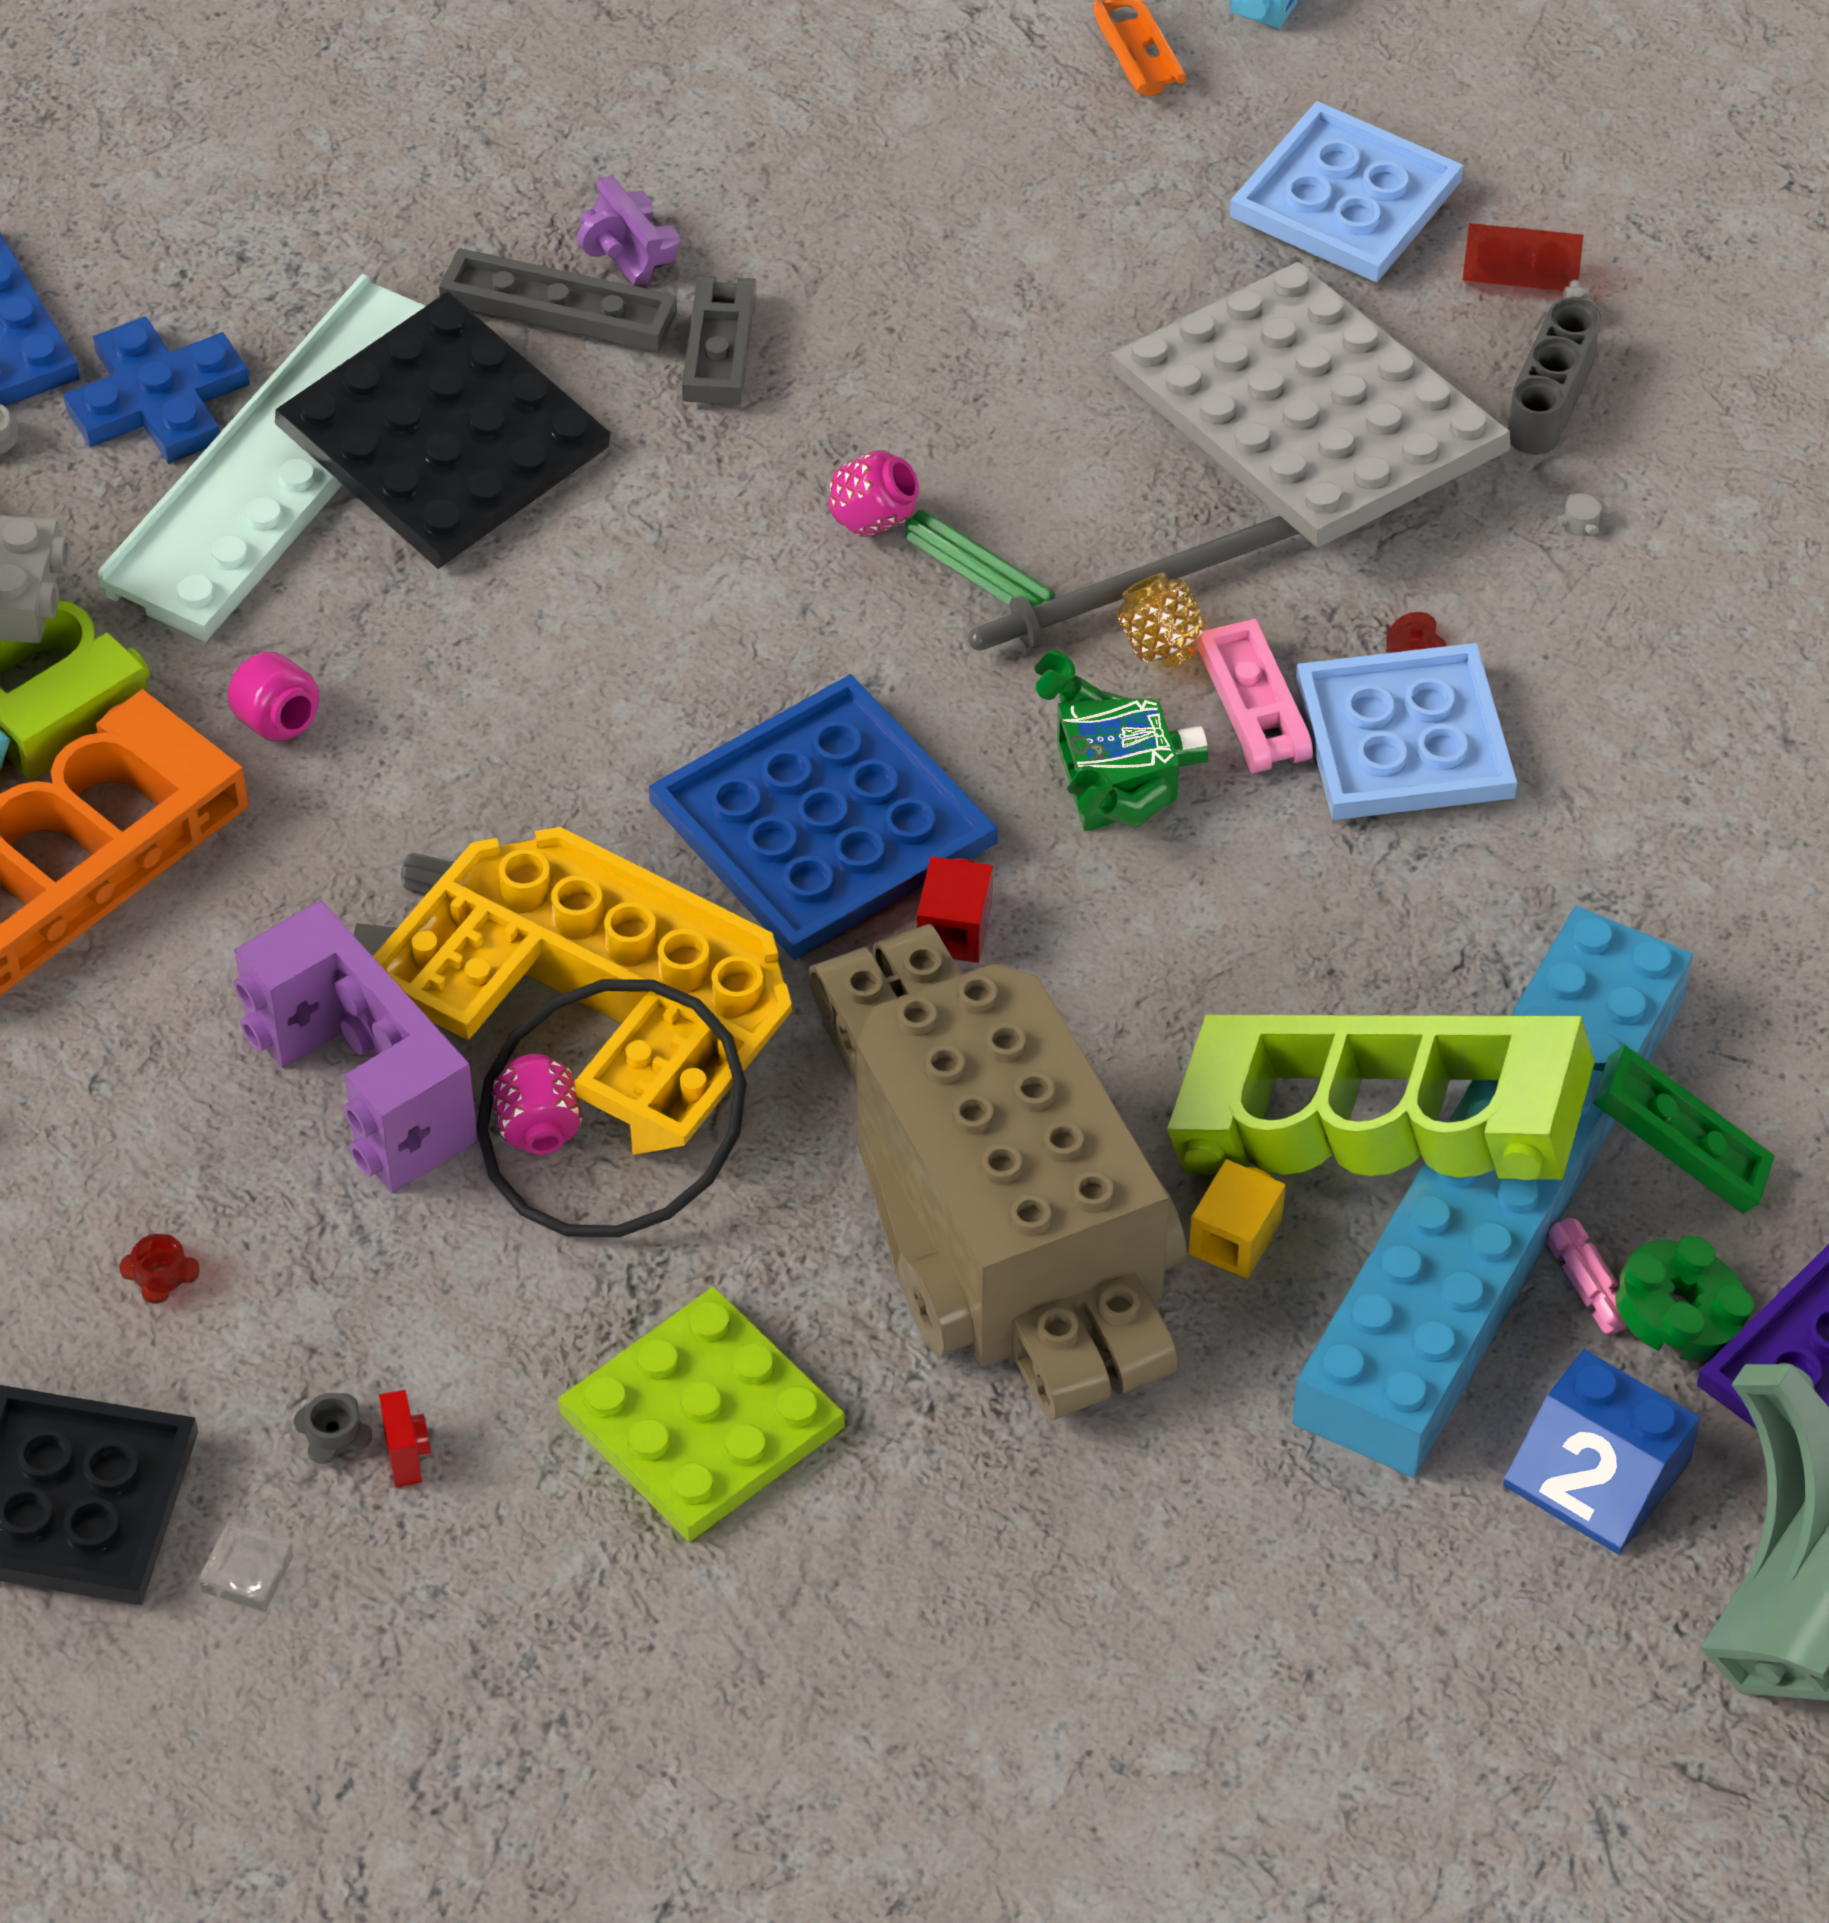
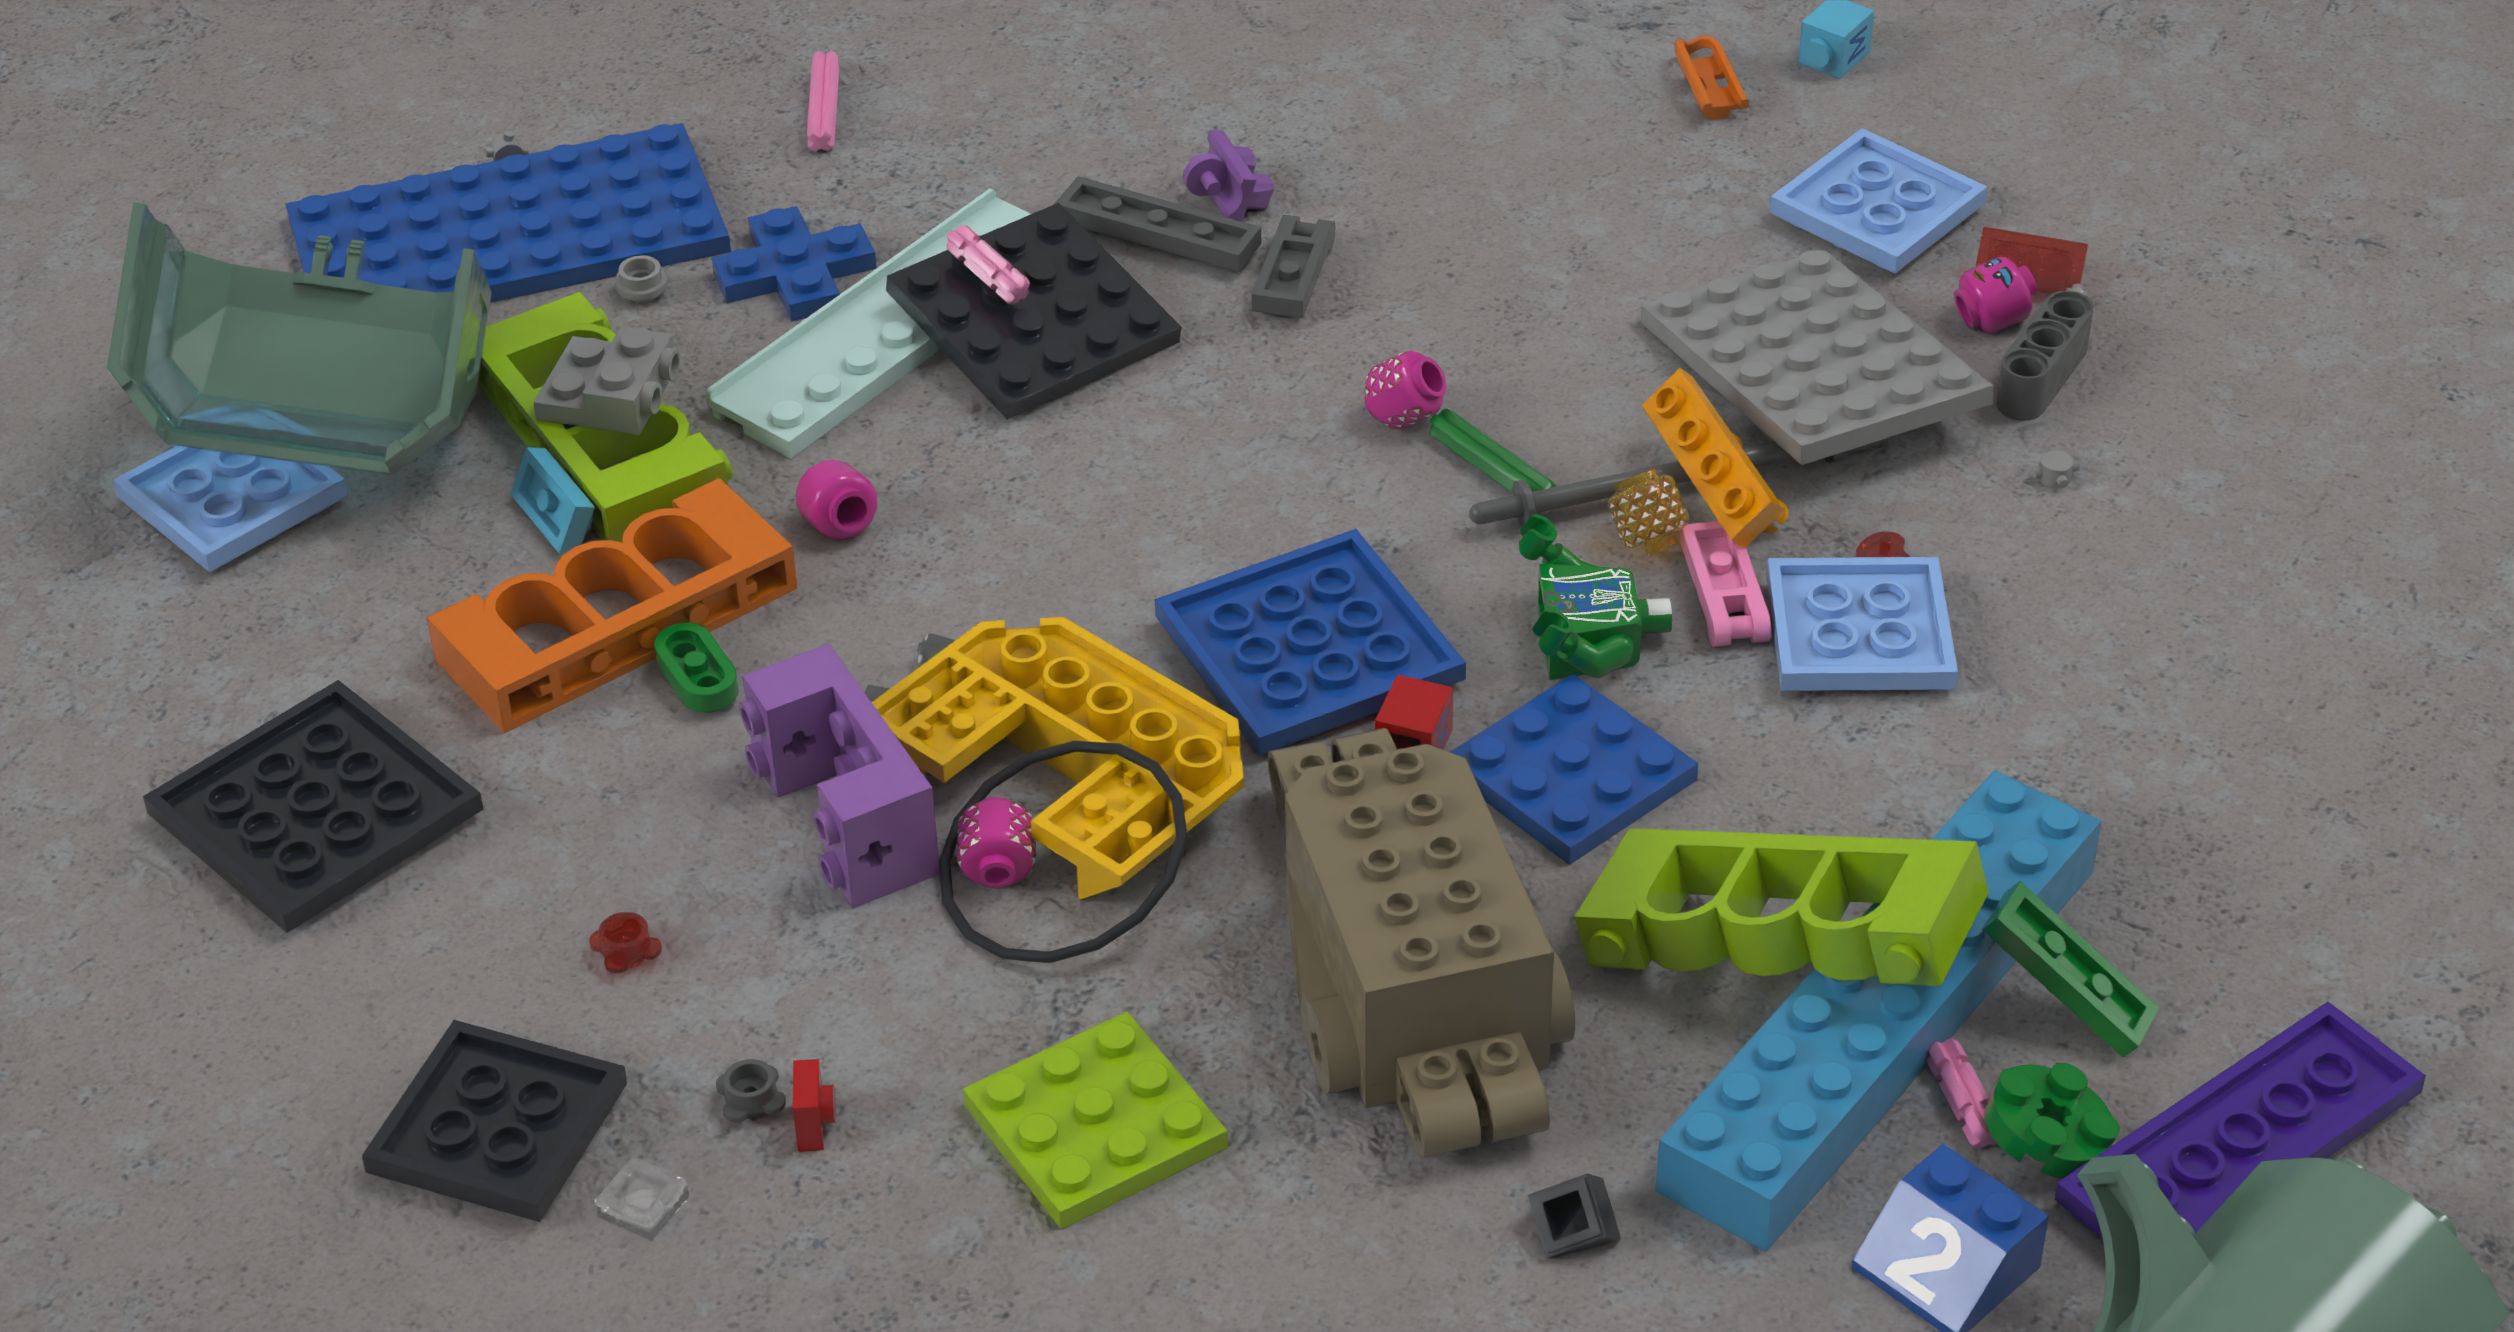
camera: 10 degrees right, 10 degrees down
(144, 169) = (823, 101): none -> bright pink axle
(168, 925) = (696, 667): none -> green plate
(388, 386) = (987, 264): none -> bright pink axle
(1127, 938) = (1574, 768): none -> blue plate
(1217, 1467) = (1574, 1216): none -> black slope
(1223, 551) = (1714, 459): none -> light orange plate
(1237, 1218) = (1630, 1006): yellow brick -> none
(1490, 304) = (1995, 295): none -> dark pink head

